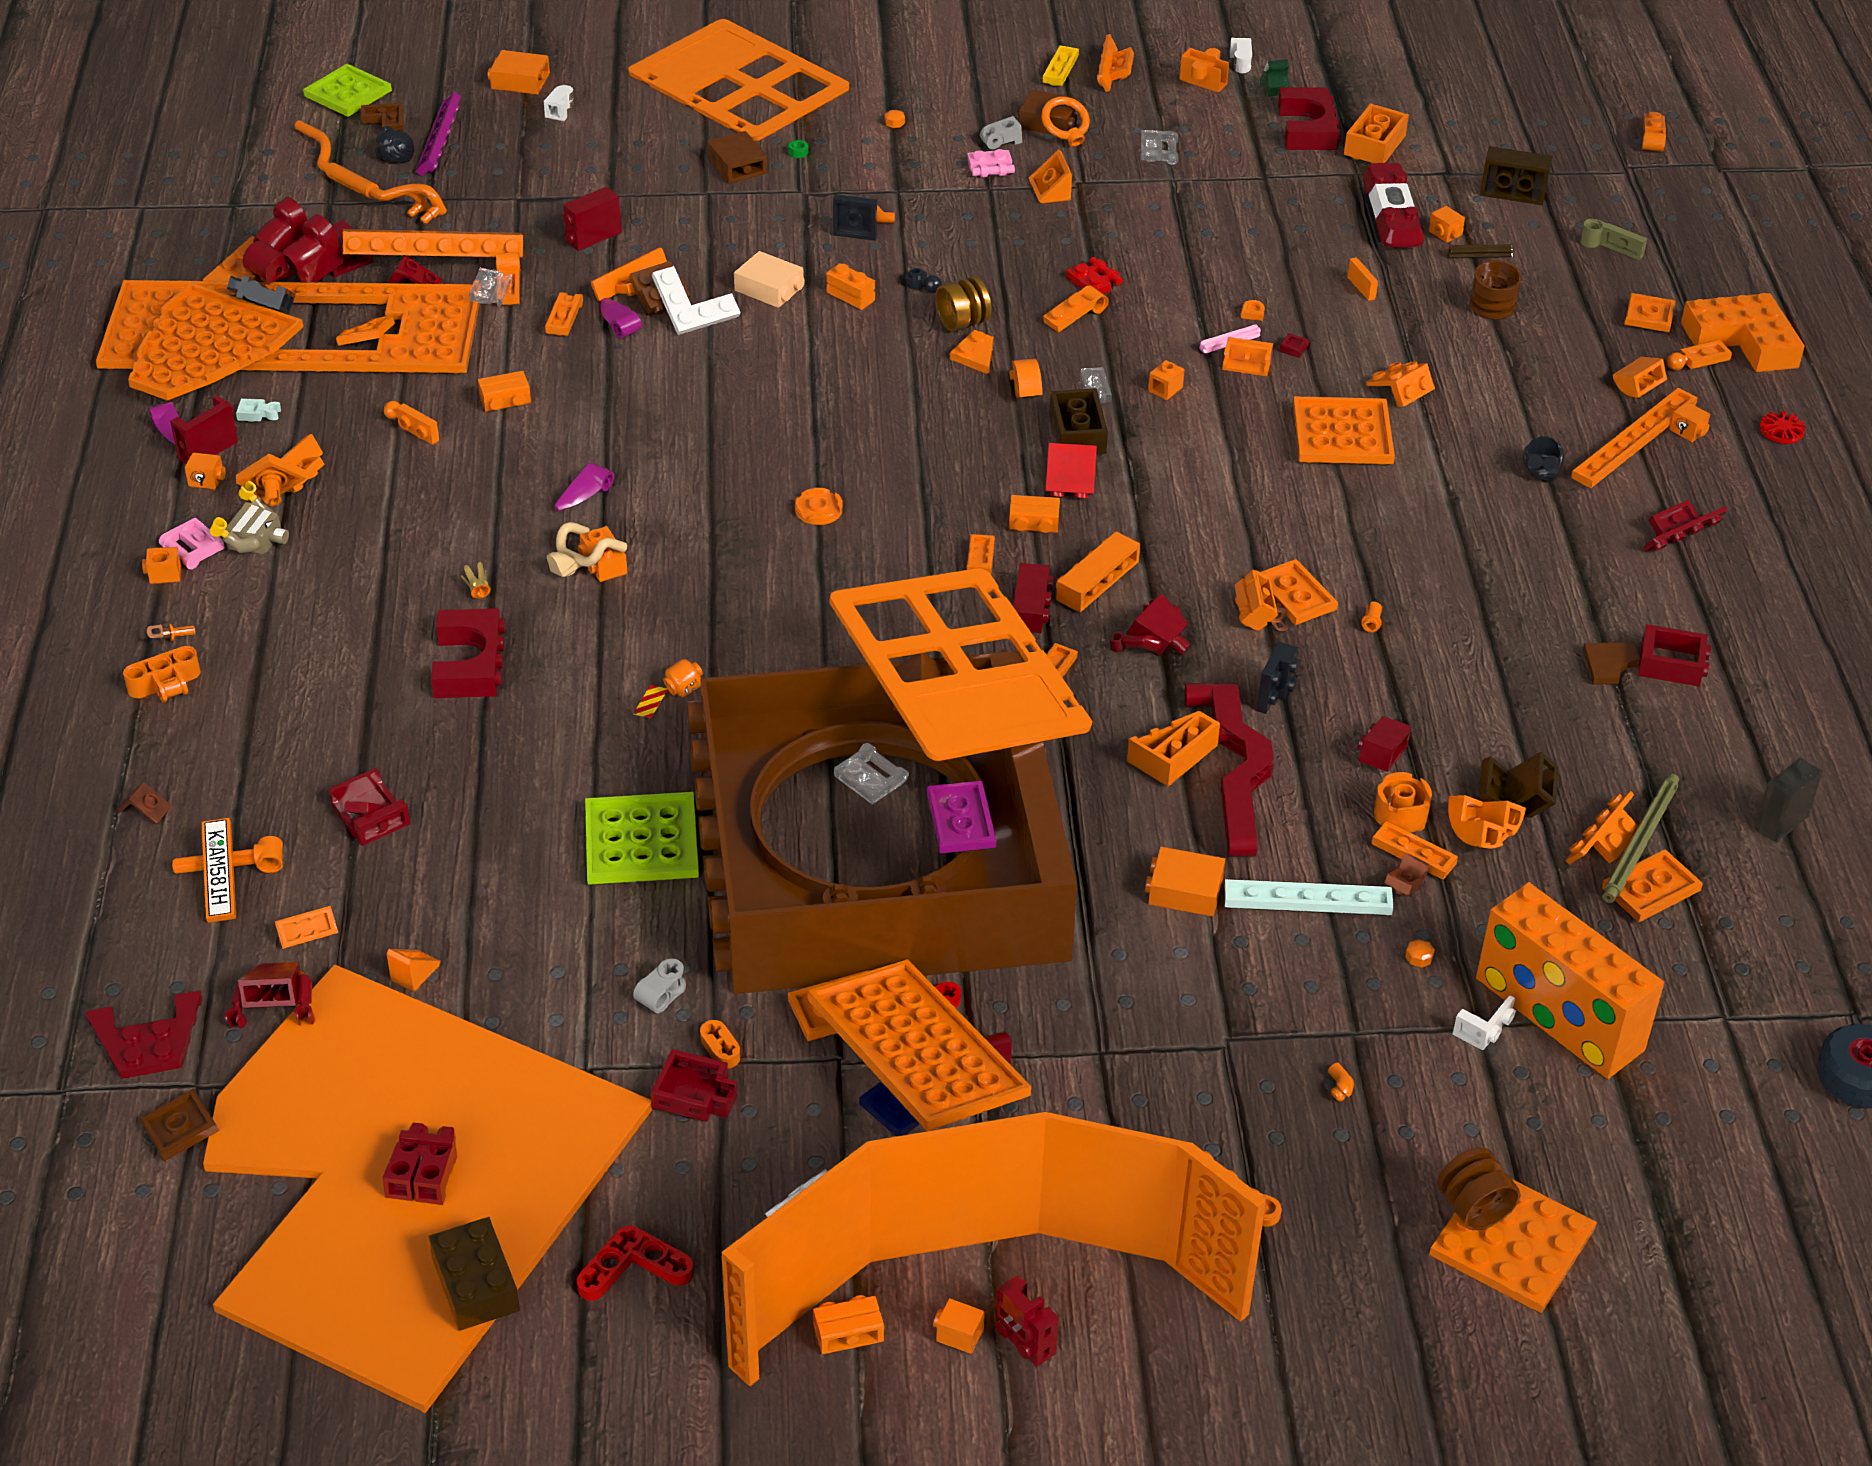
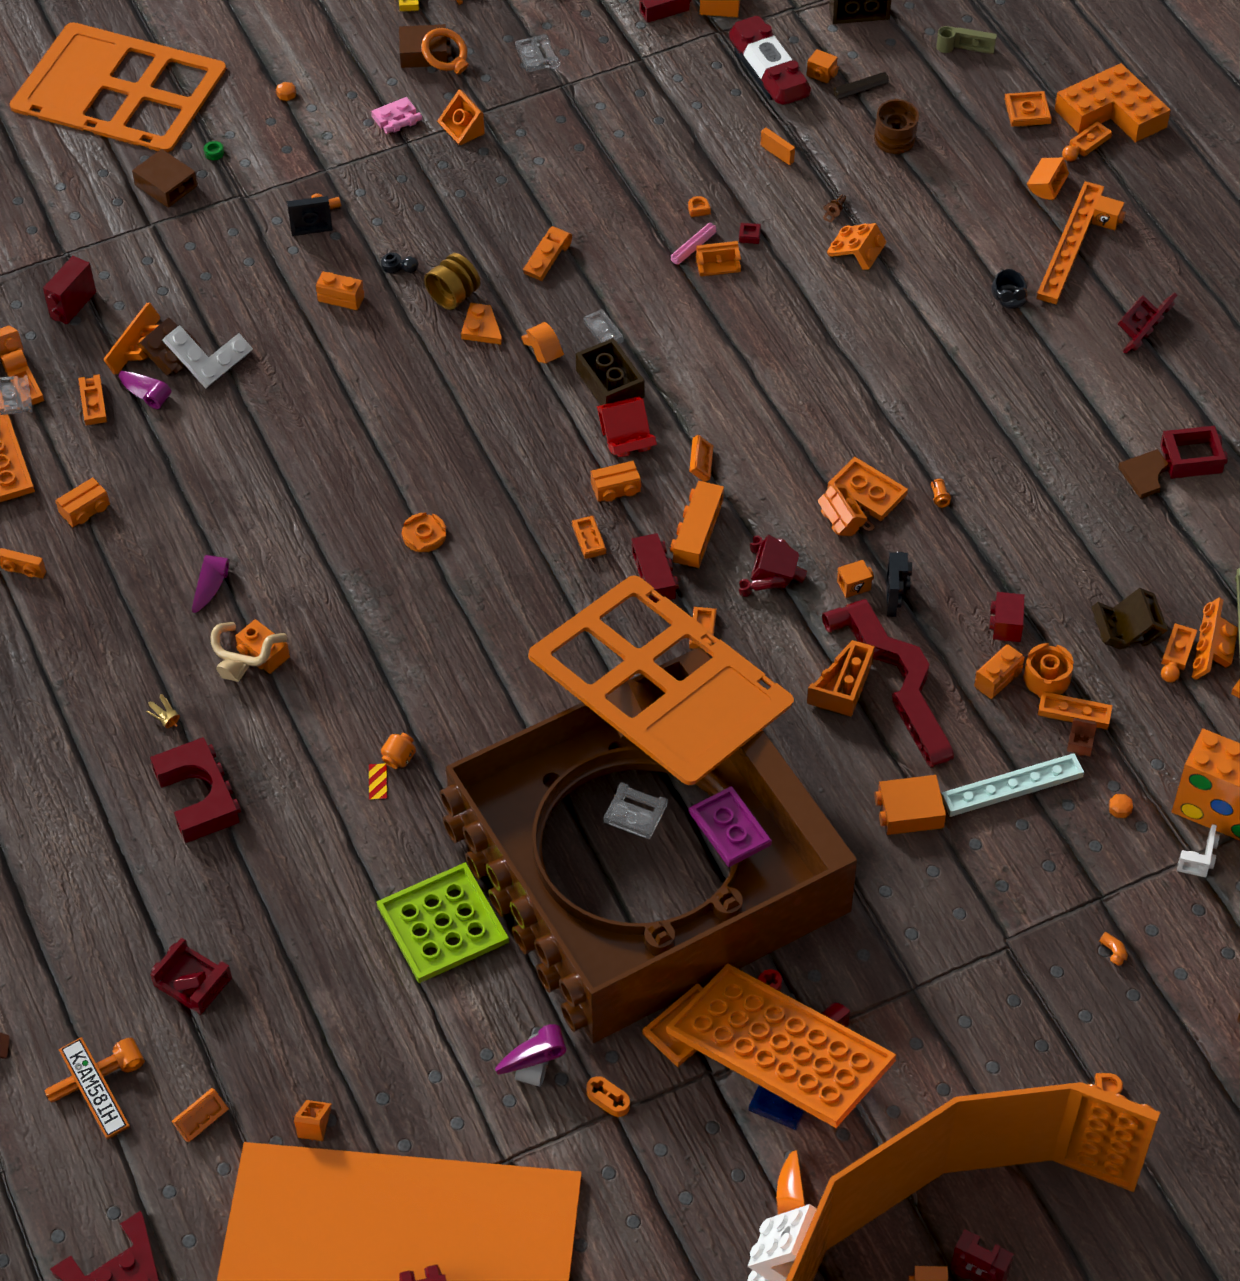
camera: 20 degrees left, 10 degrees up
(272, 986) = (208, 1185): dark red torso -> none
(666, 972) = (537, 1050): none -> magenta piece
(694, 1087) = (610, 1146): dark red piece -> none
(769, 279) = (262, 305): light nougat brick -> none
(1001, 133) = (392, 80): light grey leg -> none
(1083, 275) = (541, 216): red plate -> none
(1134, 517) = (701, 458): none -> orange plate
(1166, 380) = (661, 305): orange brick -> none
(1238, 665) = (855, 578): none -> orange brick
(1343, 430) = (832, 310): orange plate -> none
(1348, 789) = (999, 671): none -> orange brick
(1394, 345) = (834, 208): none -> pearl gold piece
(1484, 822) = (1117, 665): orange brick -> none
(1559, 830) = (1177, 652): none -> orange plate
(1783, 426) = (1180, 194): red wheel -> none

